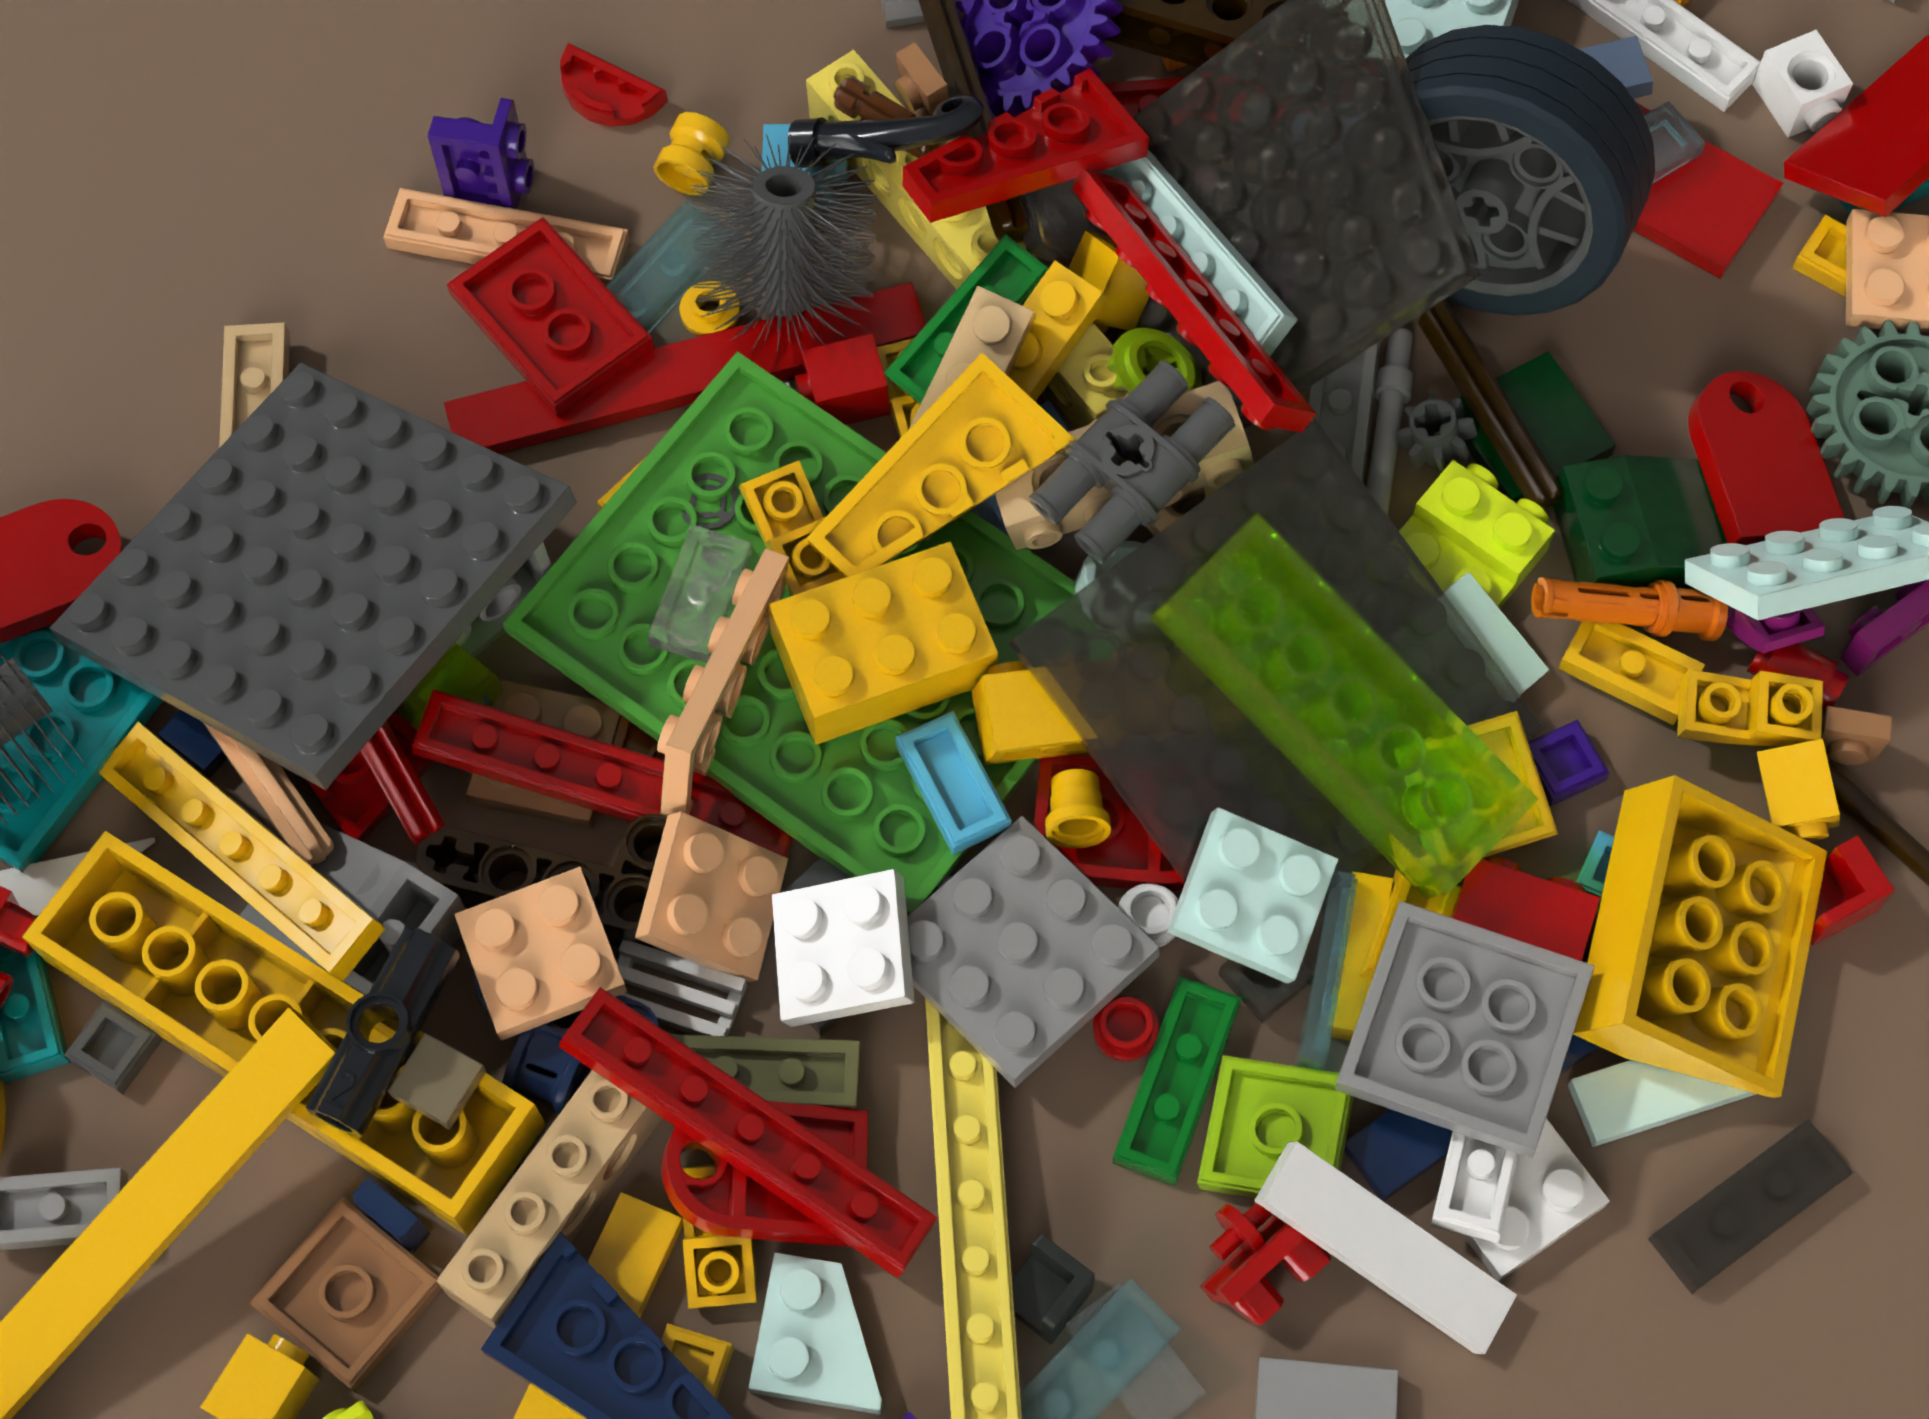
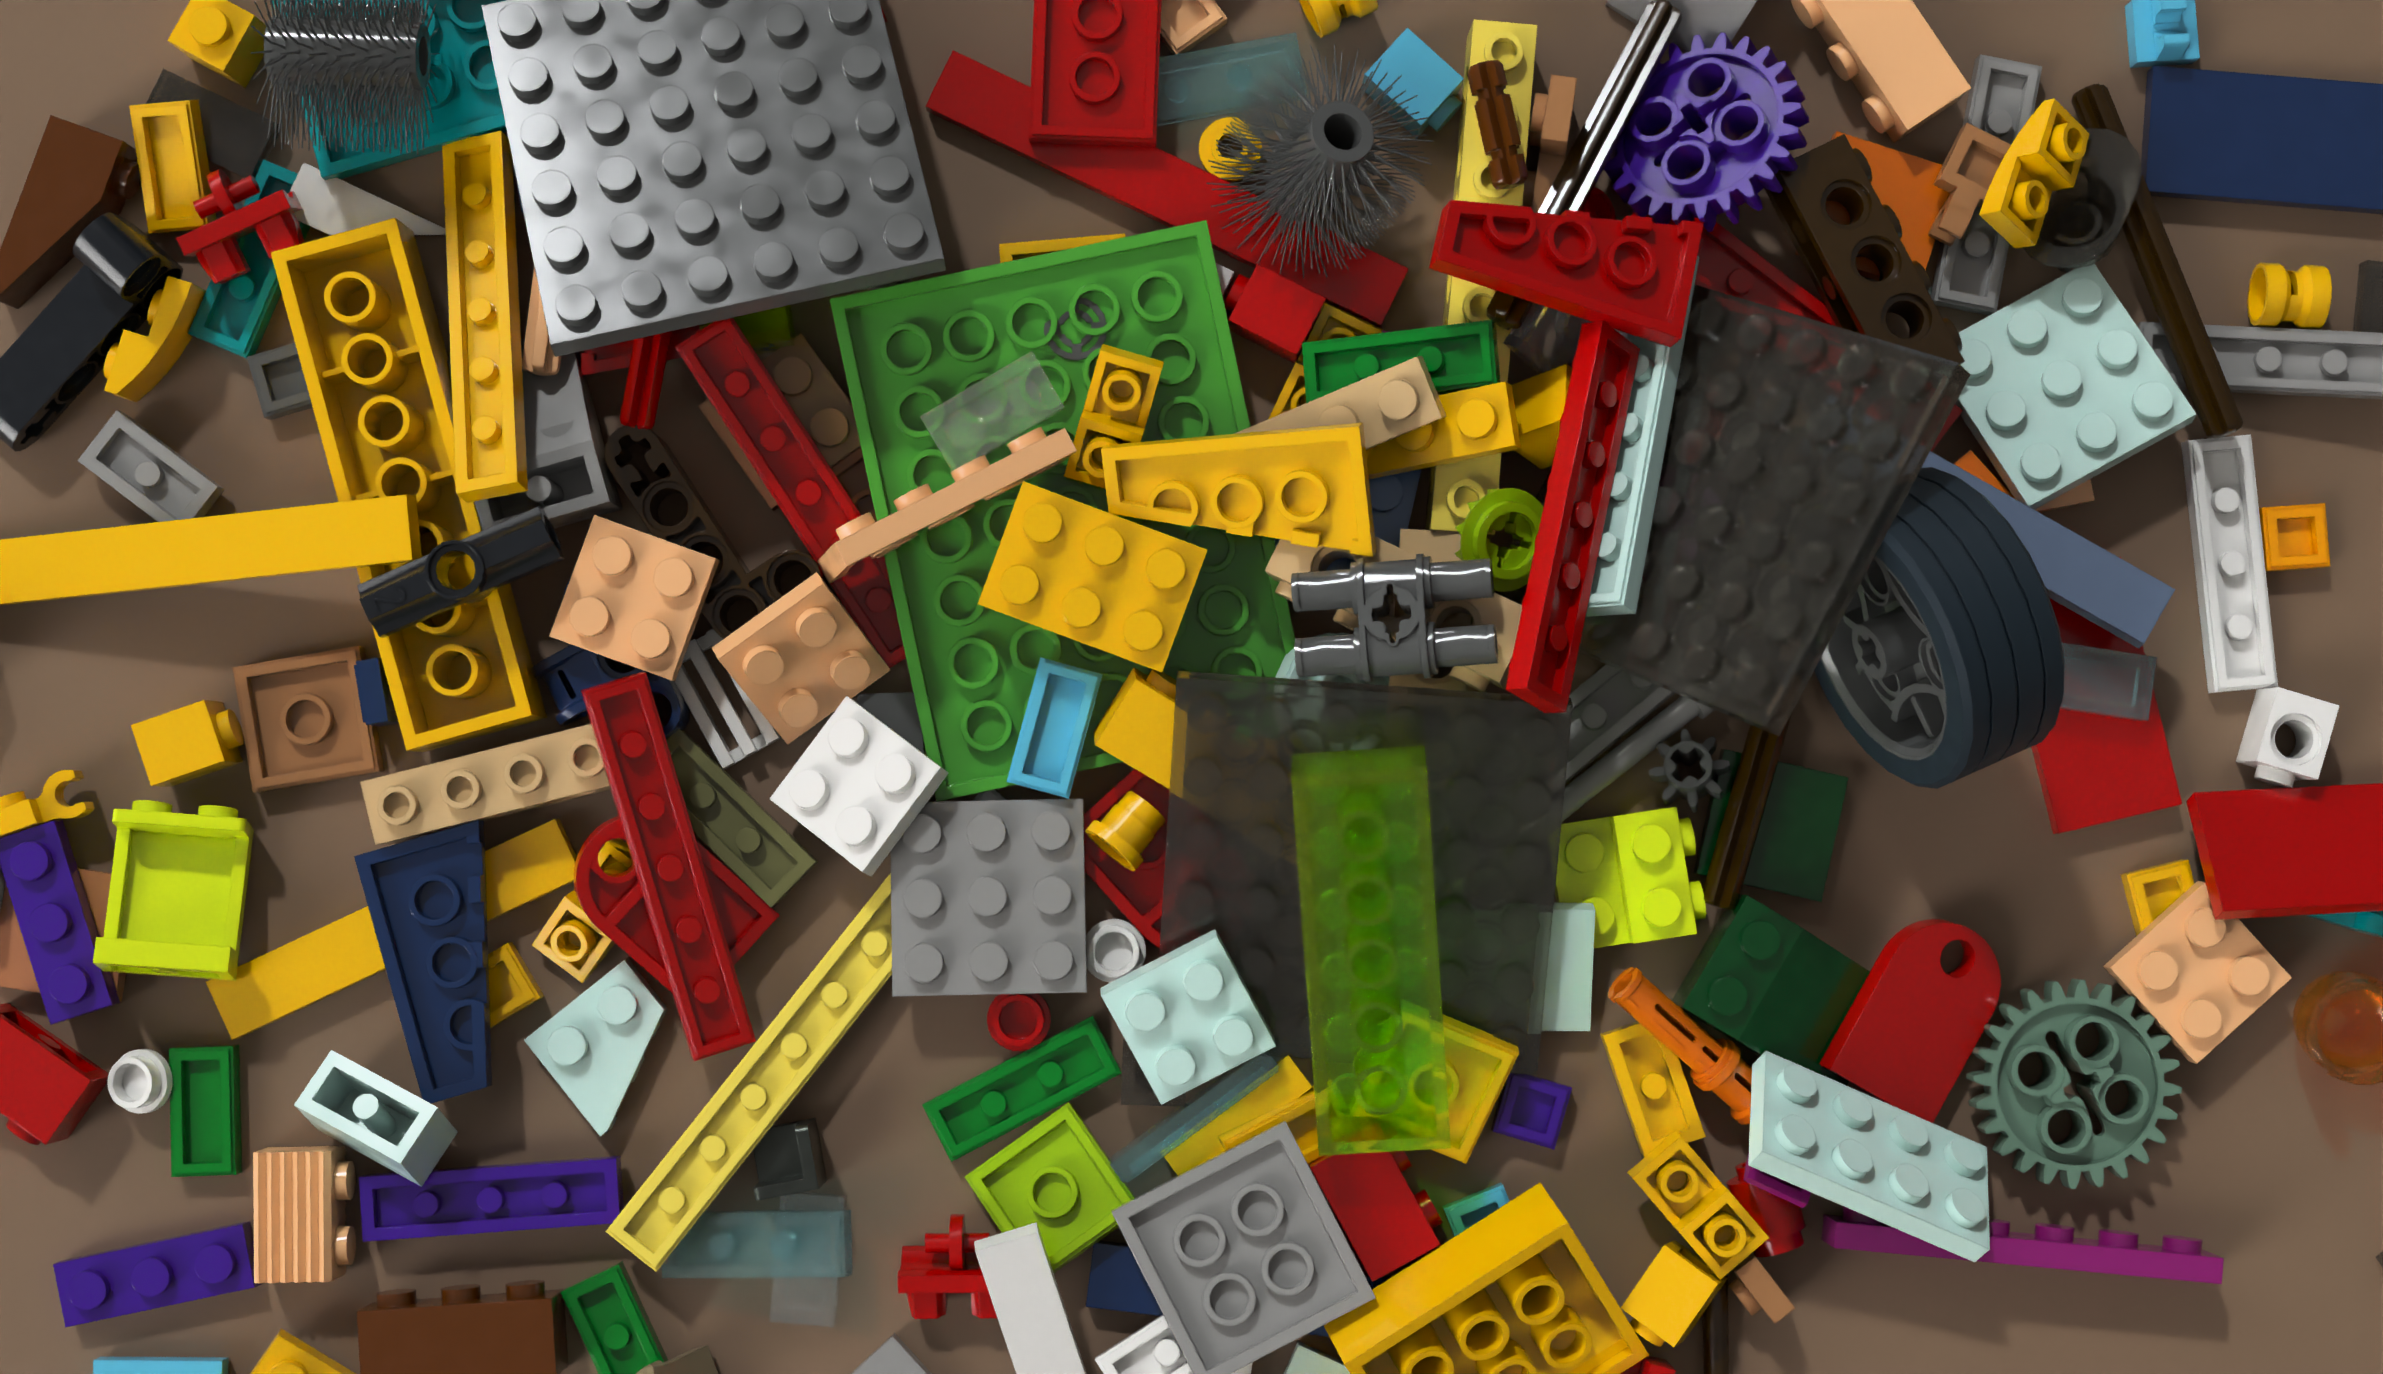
camera: 35 degrees right, 20 degrees up
(437, 1081) = (473, 639): dark tan tile -> none
(882, 137) = (1463, 138): black plant -> none

